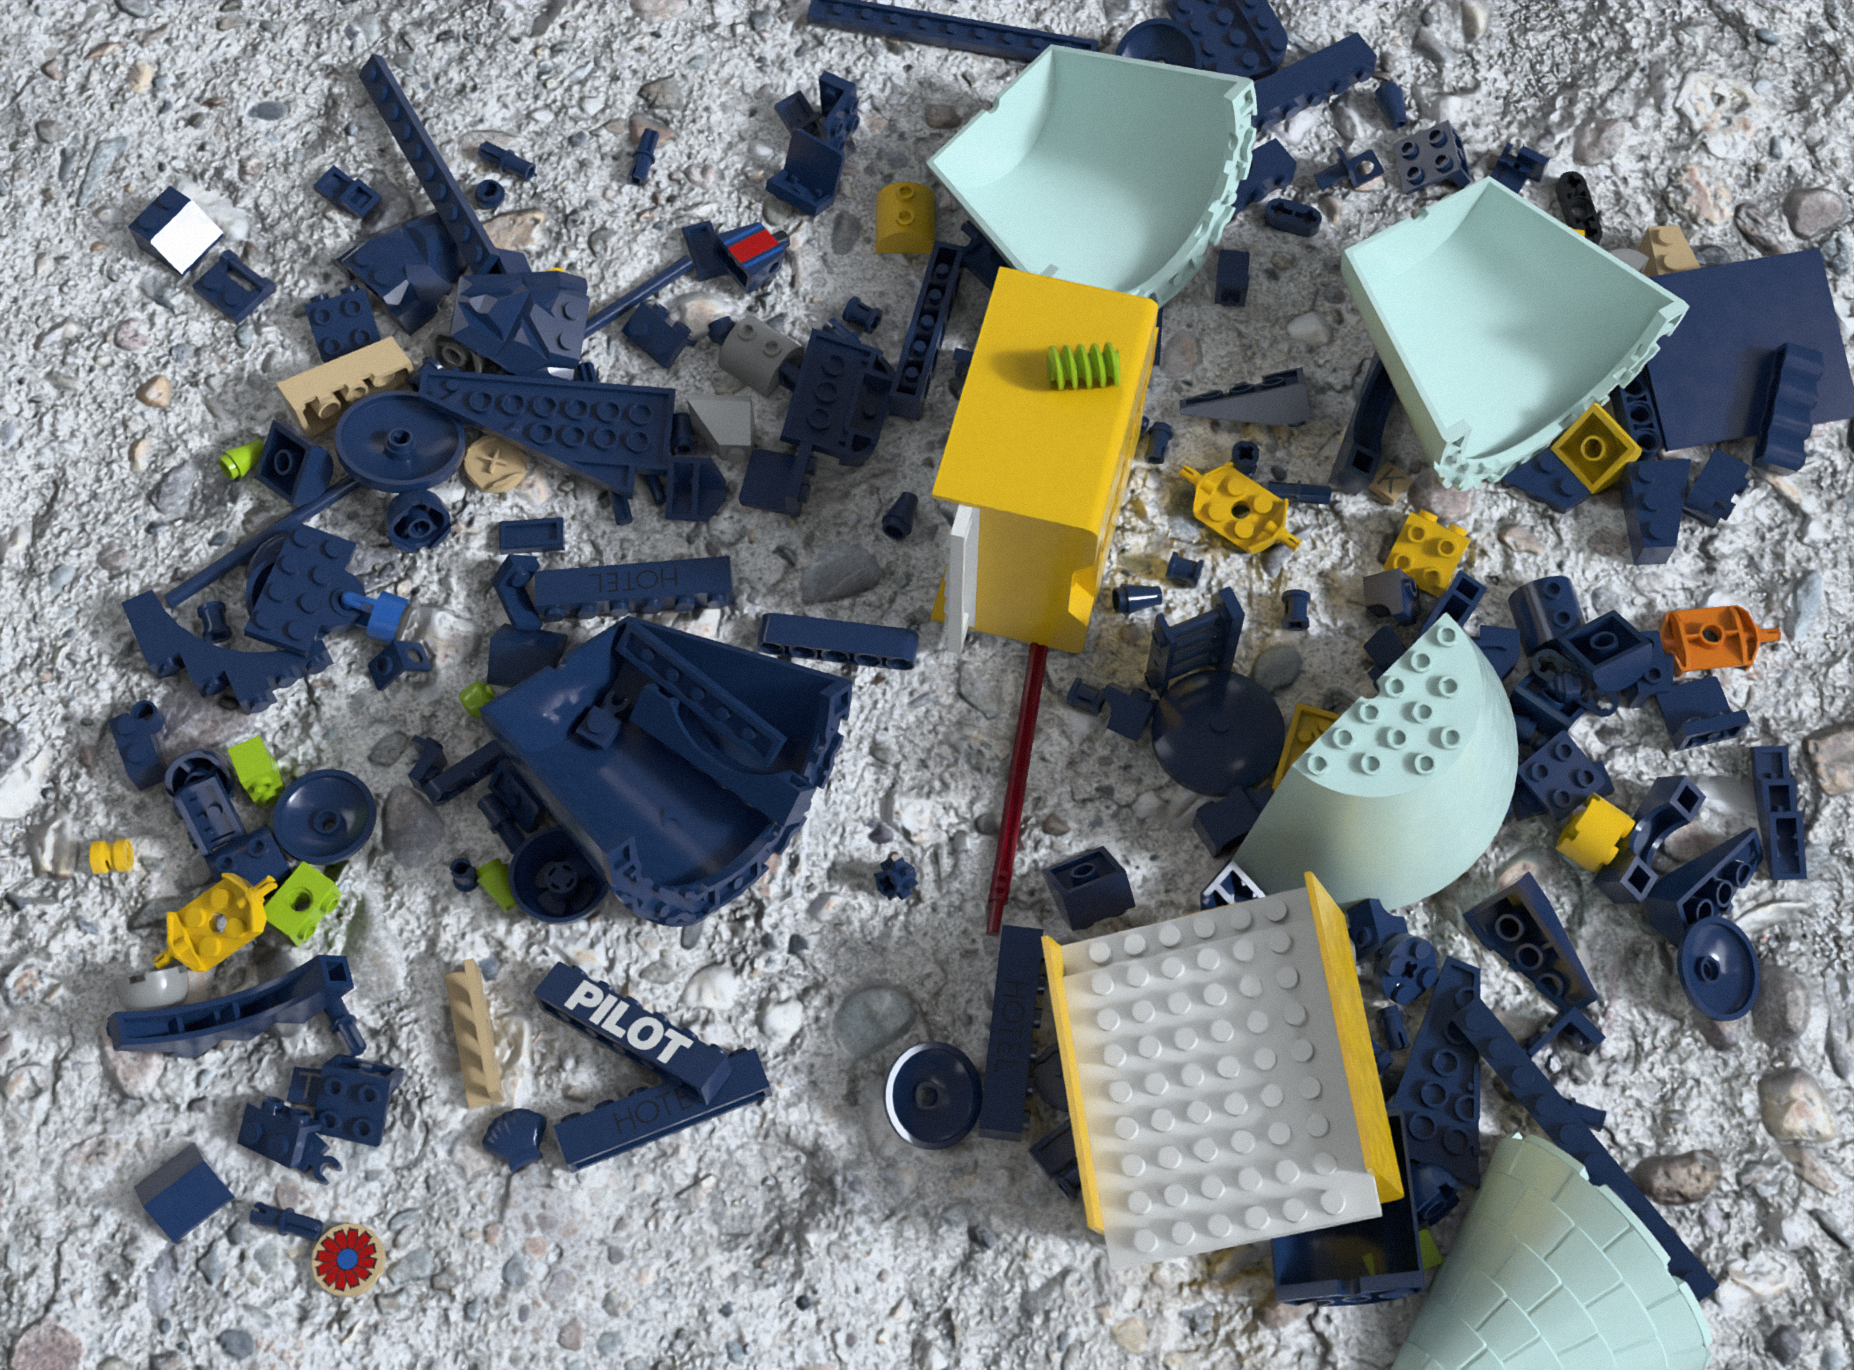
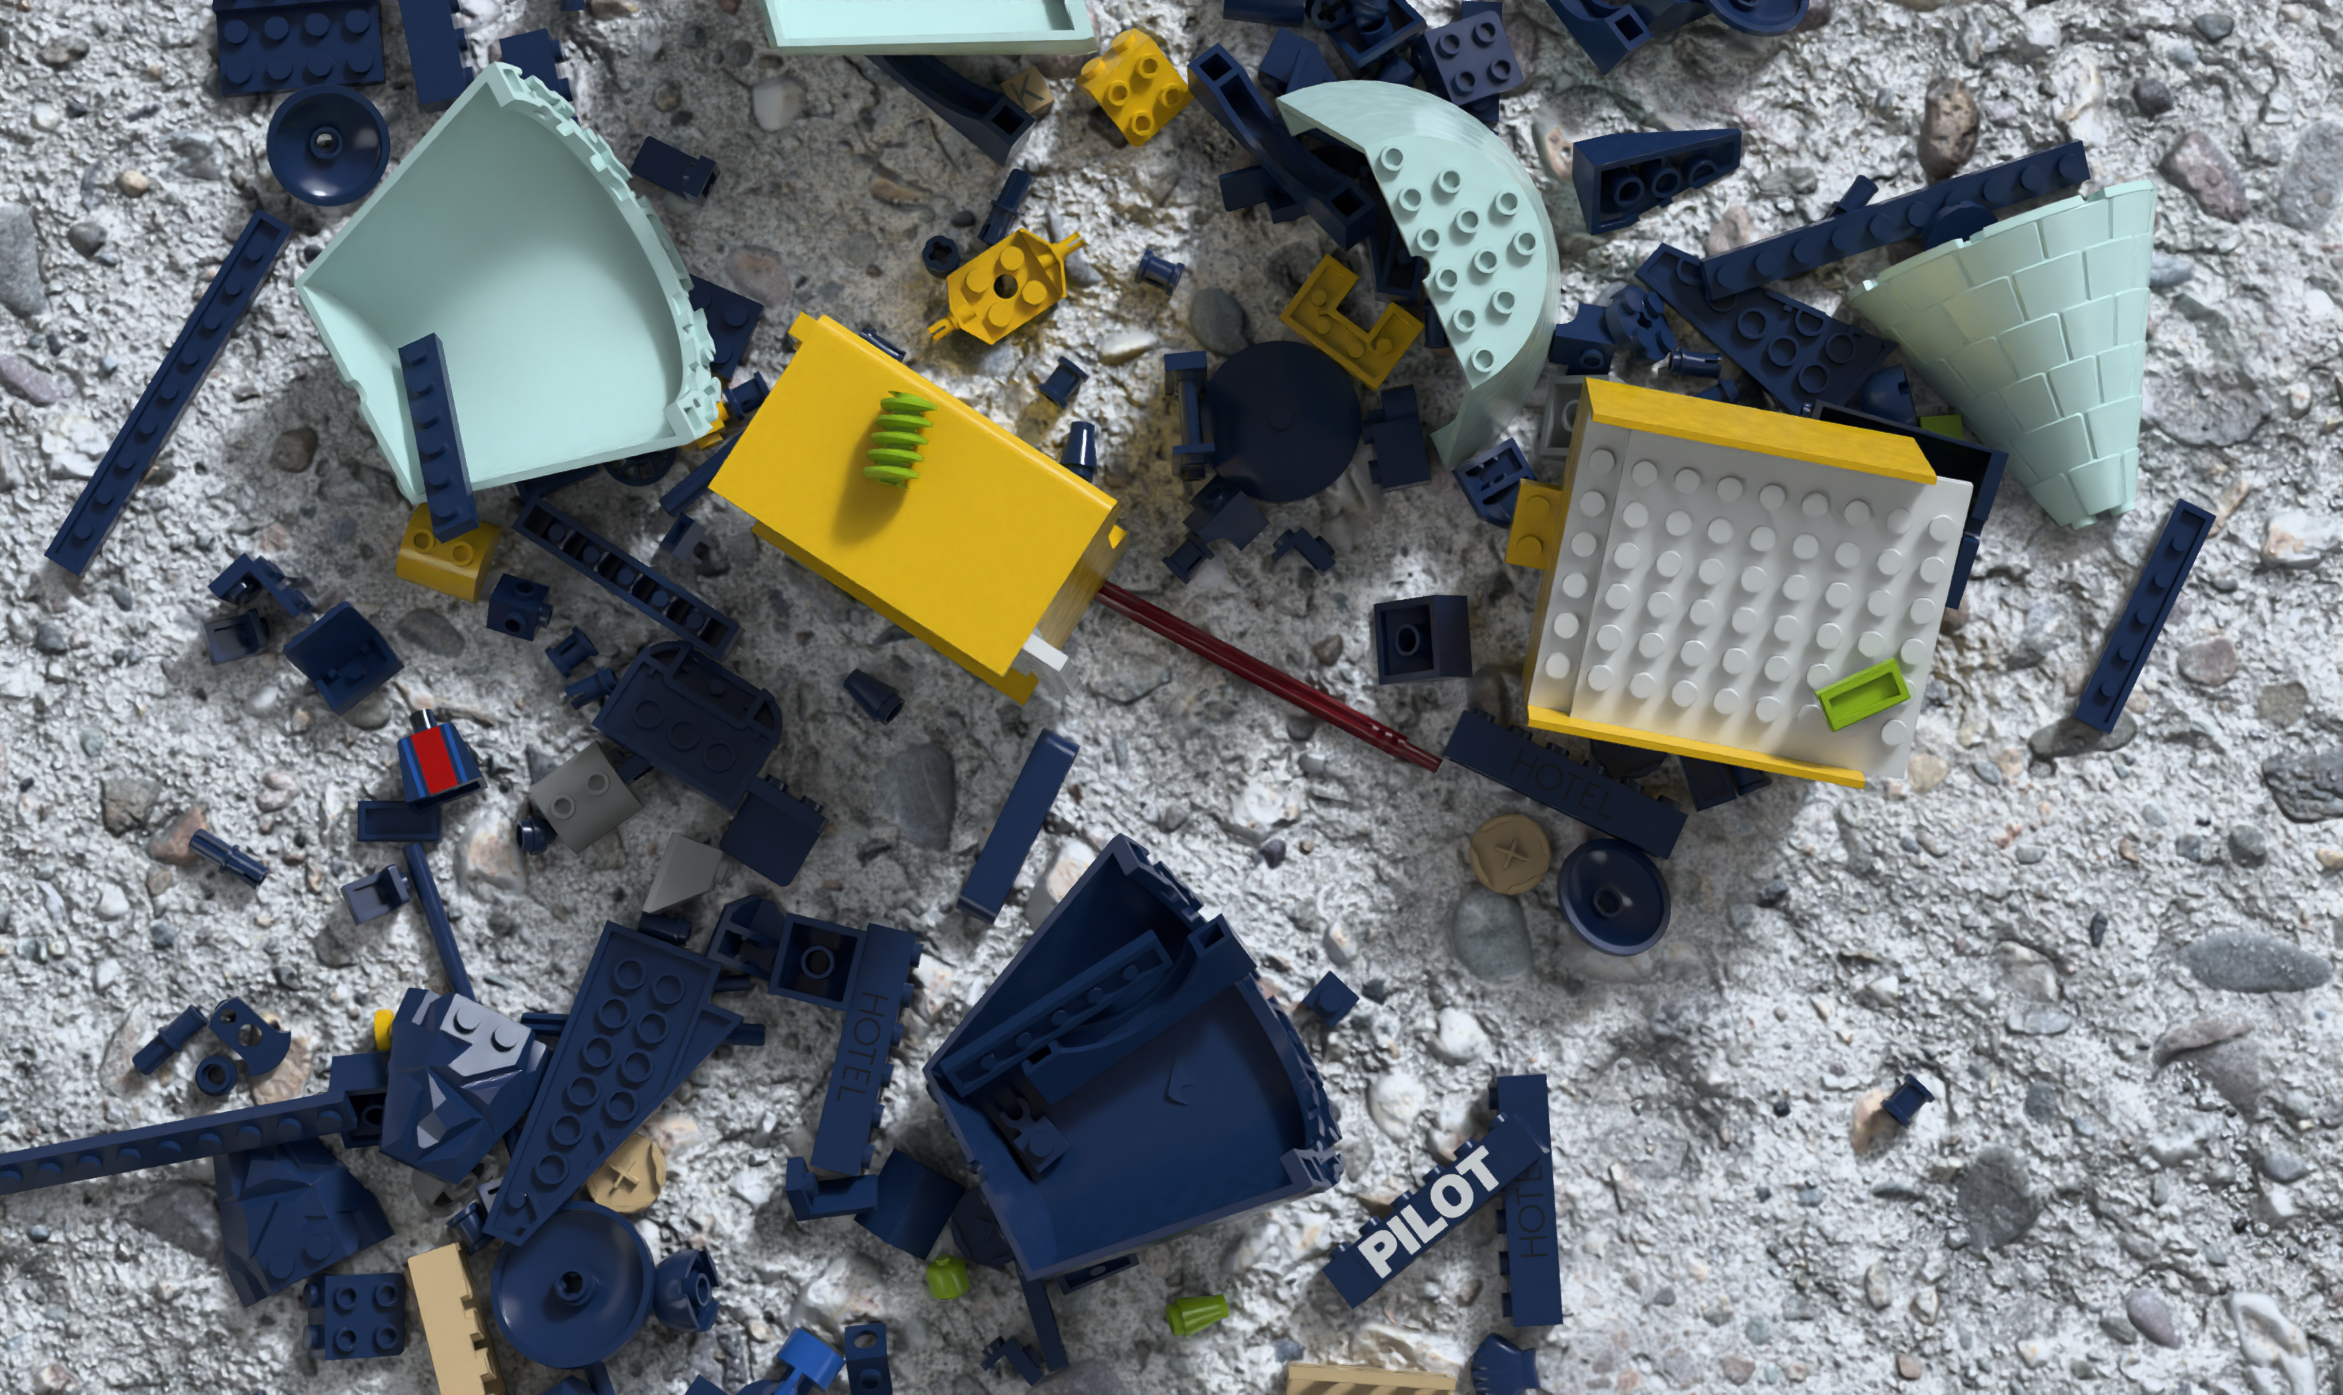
camera: 75 degrees left, 20 degrees up
(346, 193) = (147, 1262): dark blue slope -> none
(464, 875) = (1167, 1341): dark blue pin -> none
(501, 822) = (1120, 1289): dark blue axle -> none
(523, 221) = (259, 1057): none -> dark blue piece
(531, 535) = (743, 1154): dark blue tile -> none
(551, 862) = (1230, 1275): dark blue piece -> none
(646, 247) = (376, 894): none -> dark blue bracket
(657, 333) = (509, 916): dark blue bracket -> none
(688, 528) = (818, 962): none -> dark blue brick
(779, 910) = (1330, 999): none -> dark blue plate
(881, 270) = (519, 607): none -> dark blue brick
(895, 878) = (1342, 855): dark blue gear -> none
(941, 1010) = (1509, 854): none -> tan tile
(978, 166) = (438, 438): none -> dark blue plate
(1127, 784) = (1315, 551): none -> dark blue bracket
(1166, 1194) = (1862, 695): none -> lime tile
(1274, 401) = (868, 199): dark blue wedge -> none
(1292, 217) = (605, 54): dark blue beam -> none
(1392, 595) = (1184, 152): dark blue brick -> none
(1575, 1025) = (1769, 165): dark blue bracket -> none
(1593, 833) = (1554, 50): yellow brick -> none

